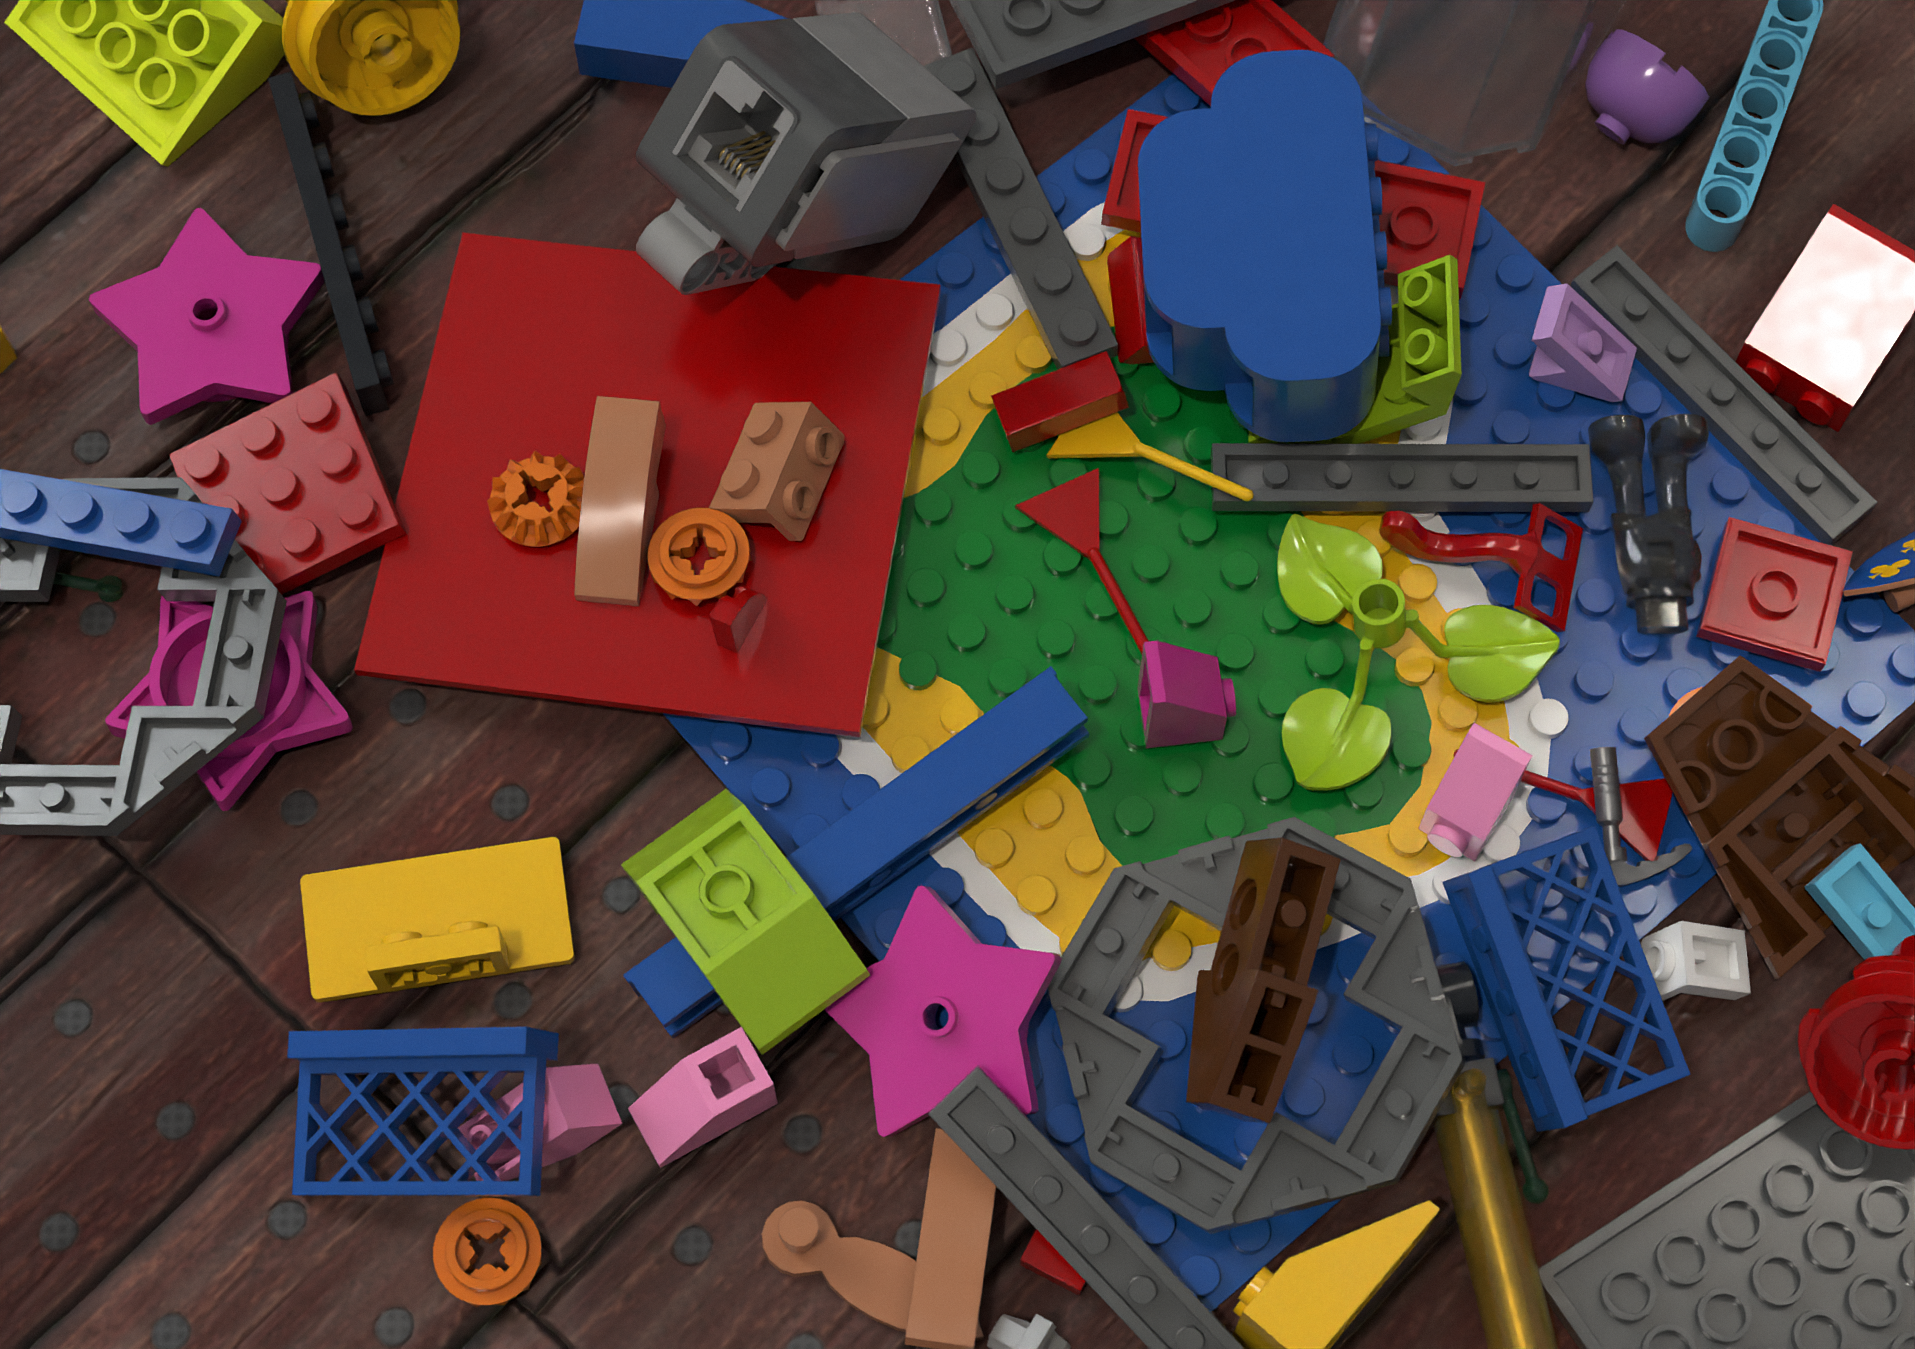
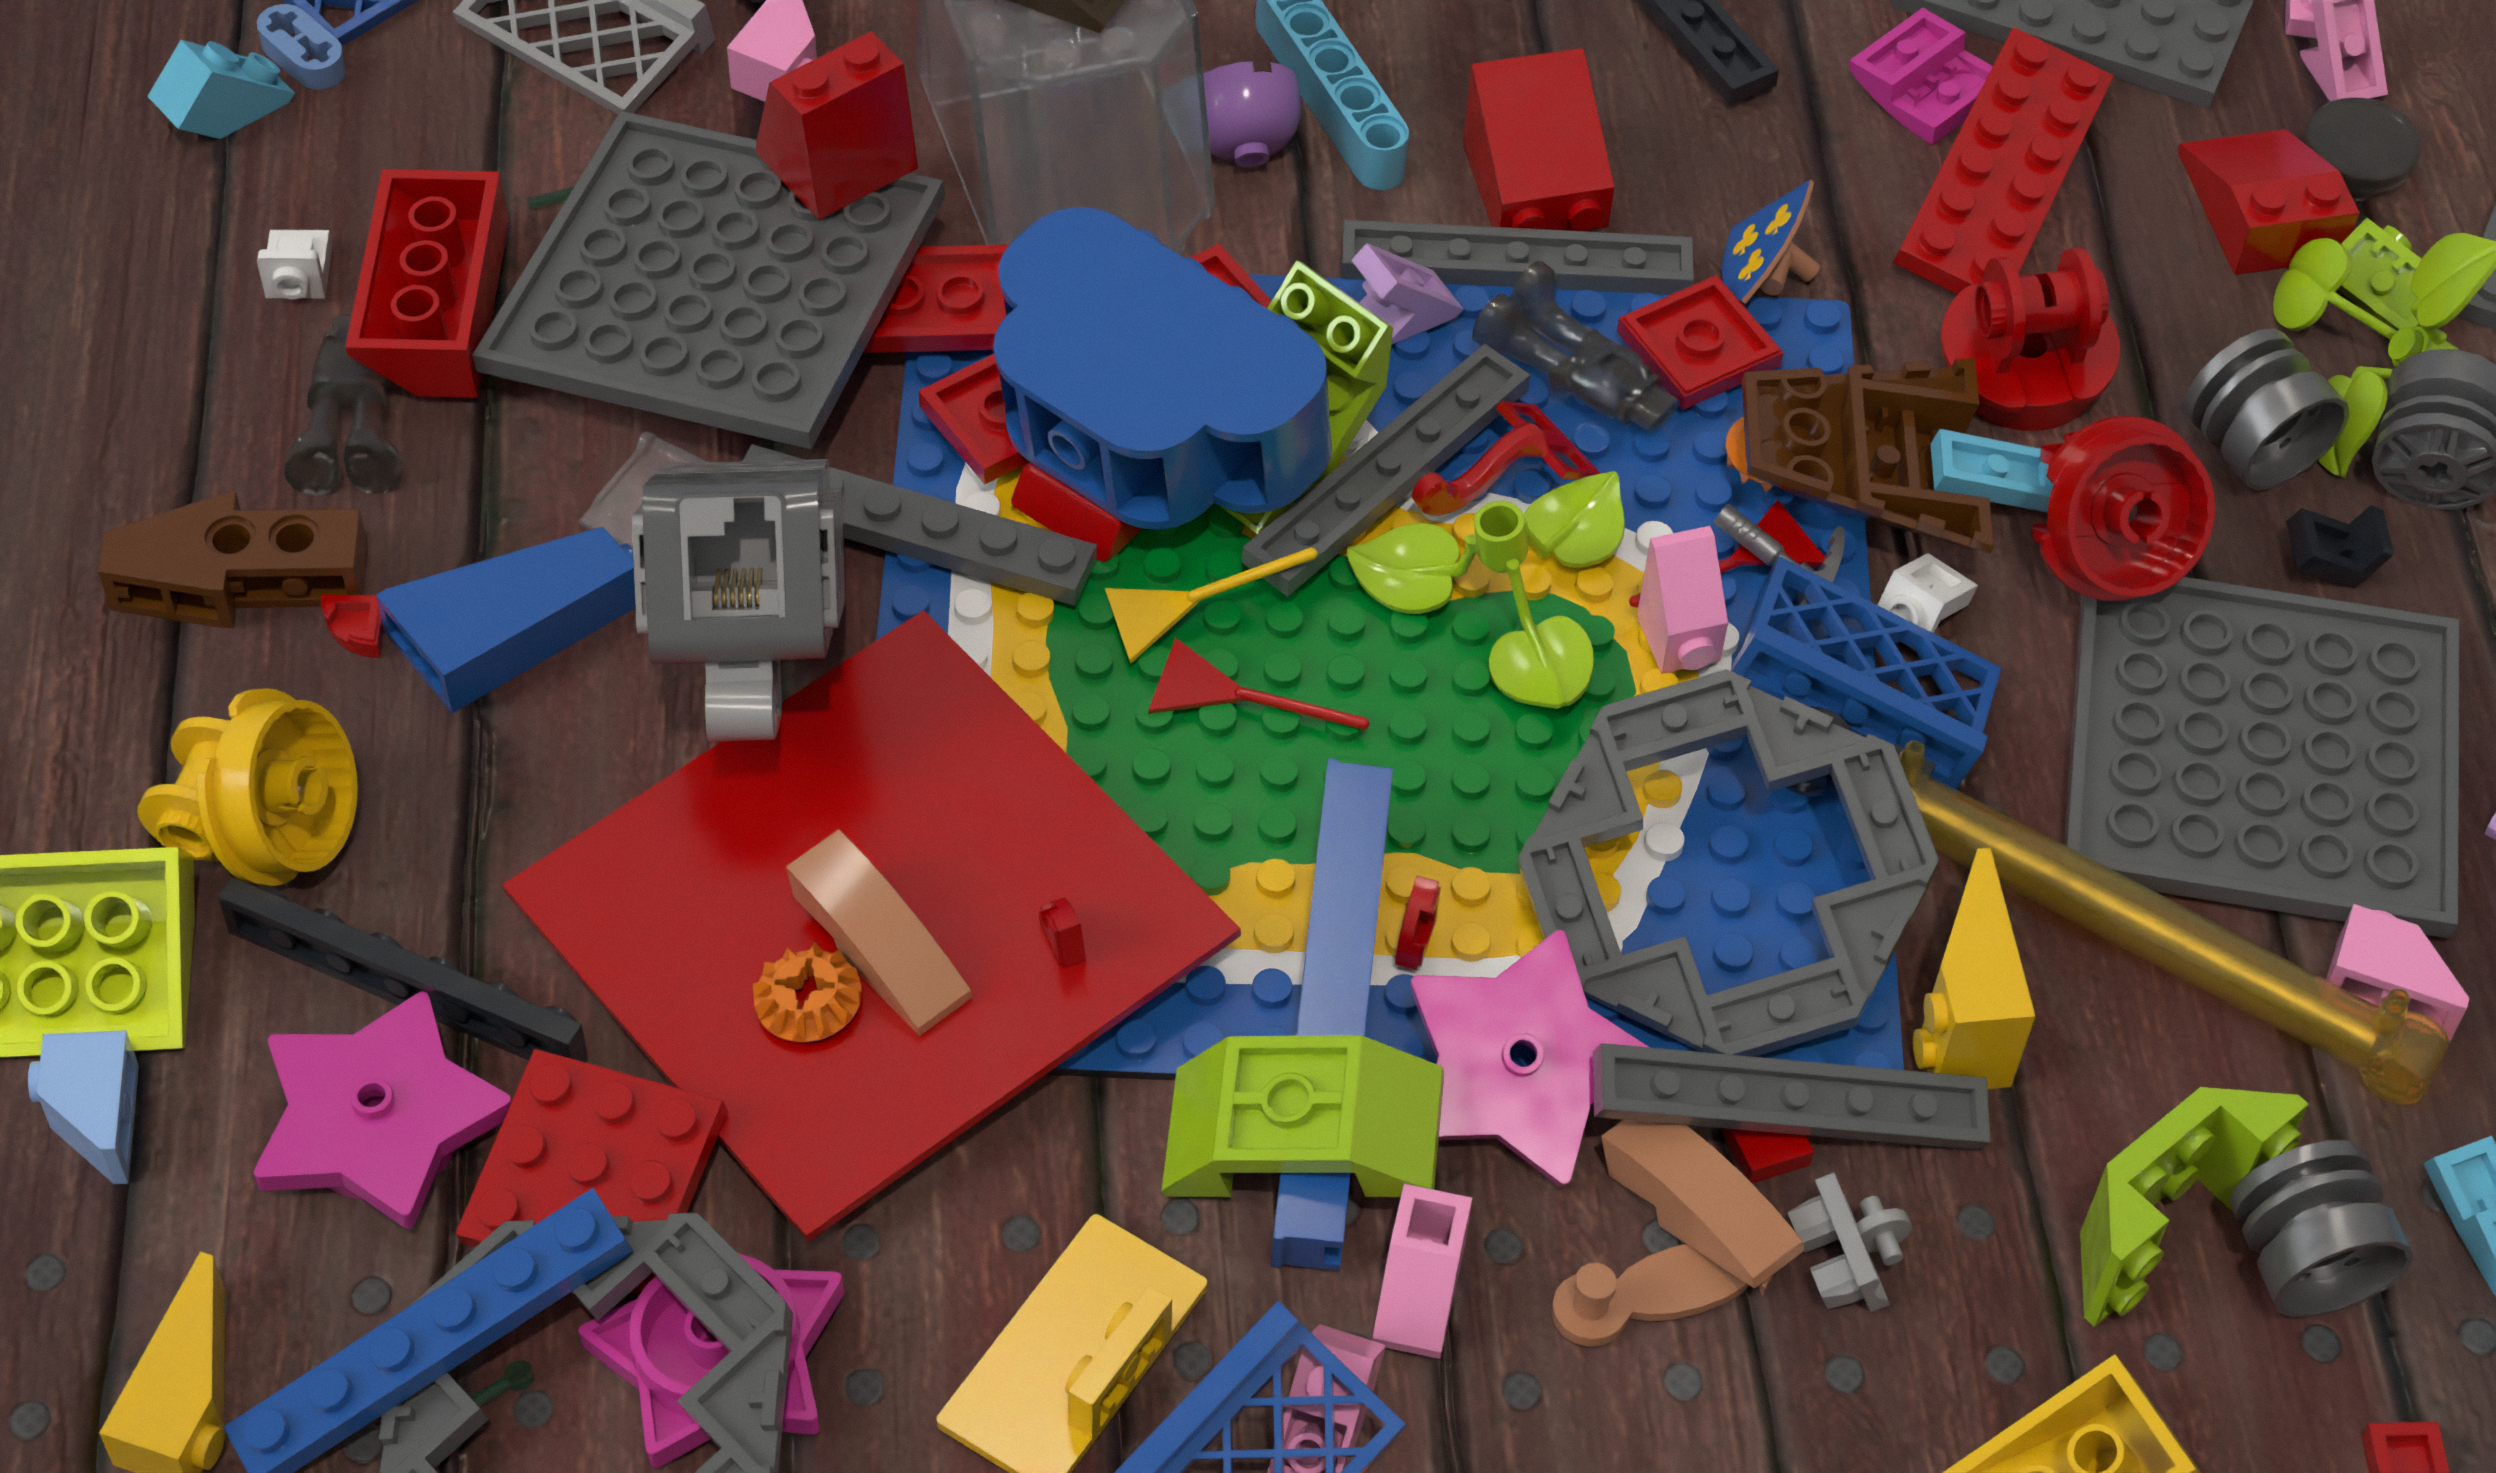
camera: 50 degrees left, 15 degrees down
(65, 151) = (89, 1095): none -> light blue slope
(679, 538) = (981, 895): orange gear -> none
(779, 467) = (964, 812): nougat bracket -> none
(997, 847) = (1418, 923): none -> red tile
(1060, 401) = (1101, 612): red slope -> none
(1182, 696) = (1422, 718): dark pink slope -> none
(1257, 992) = (1727, 825): reddish brown brick -> none

